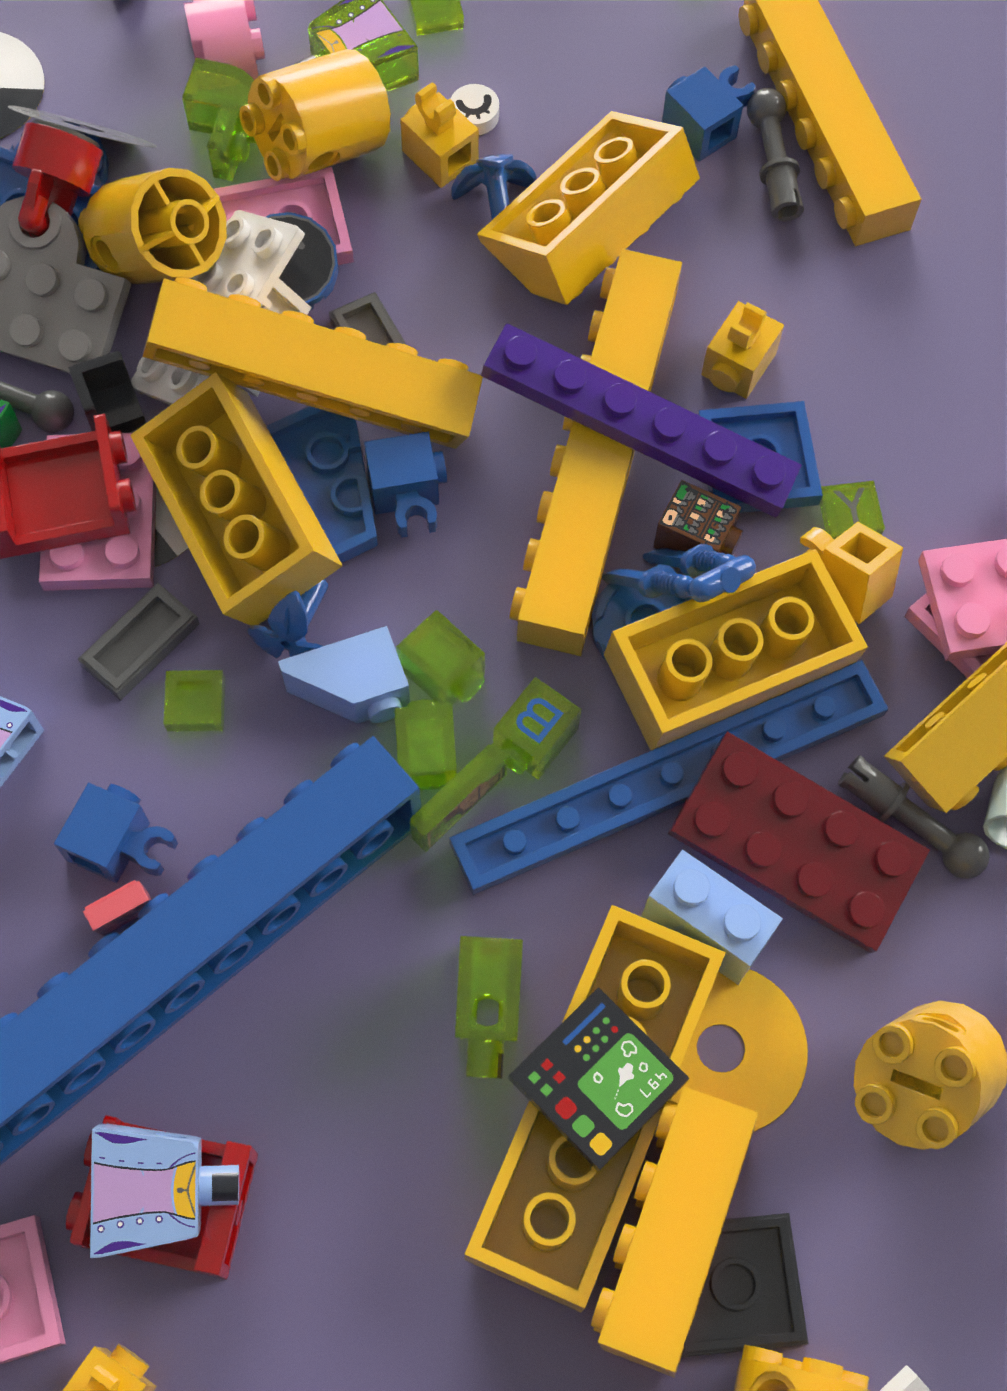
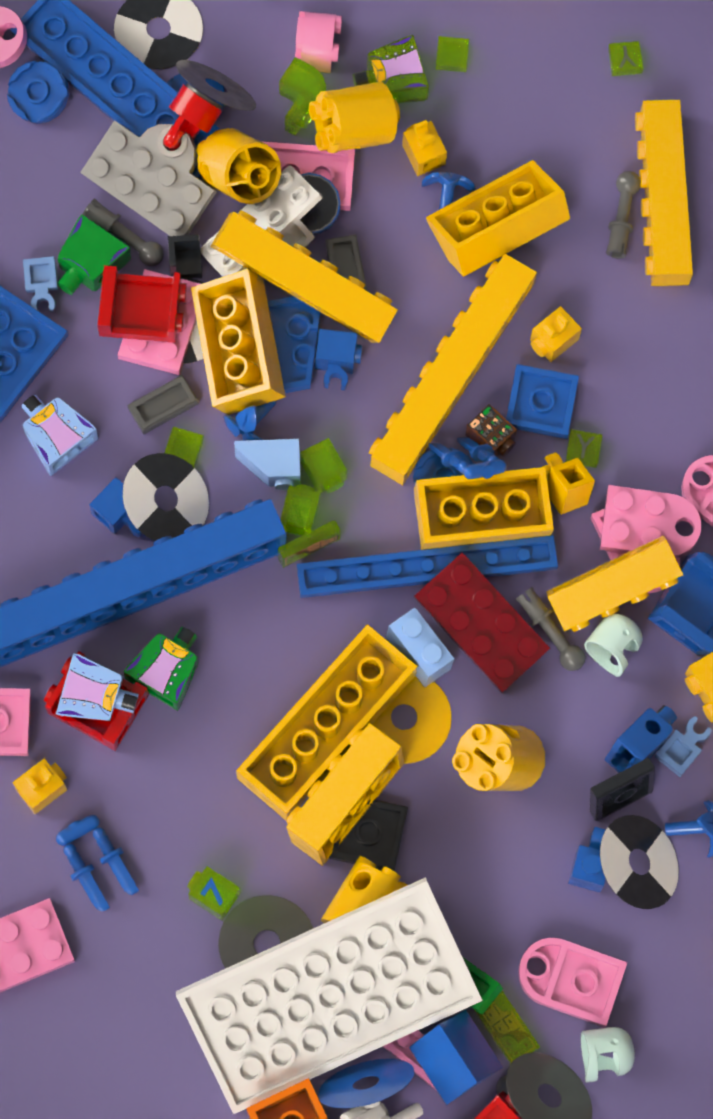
camera: 15 degrees right, 5 degrees up
(117, 907) = (114, 548): coral tile -> none
(138, 783) = (170, 471): none -> sticker
(274, 1094) = (166, 667): none -> torso
(478, 105) = (453, 131): white tile -> none
(488, 971) = (292, 639): clear neon green torso -> none
(536, 728) = (362, 519): clear neon green brick -> none
(598, 1079) = (329, 707): tile -> none
(641, 420) = (477, 362): dark purple plate -> none
(707, 108) = (589, 175): blue brick -> none

